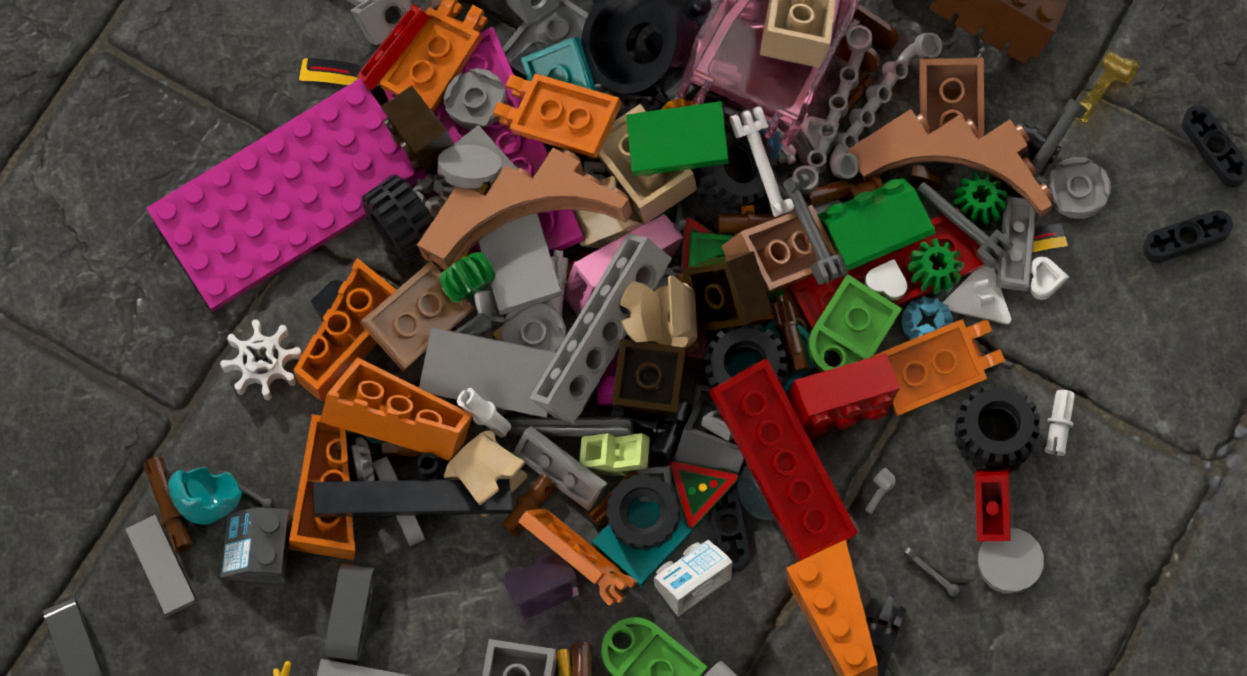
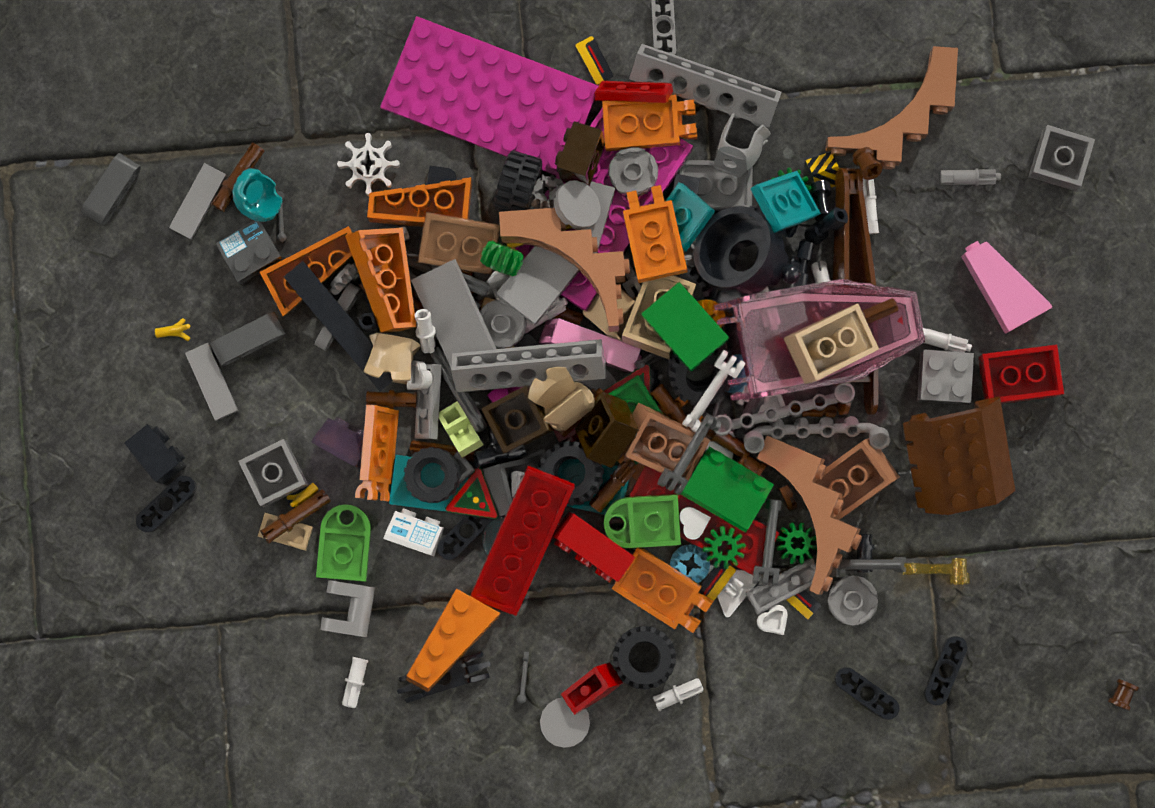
camera: 55 degrees right, 15 degrees up
(533, 455) = (420, 376): none -> white tile
(886, 482) = (563, 610): light grey hand -> none
(963, 304) = (716, 581): none -> sticker

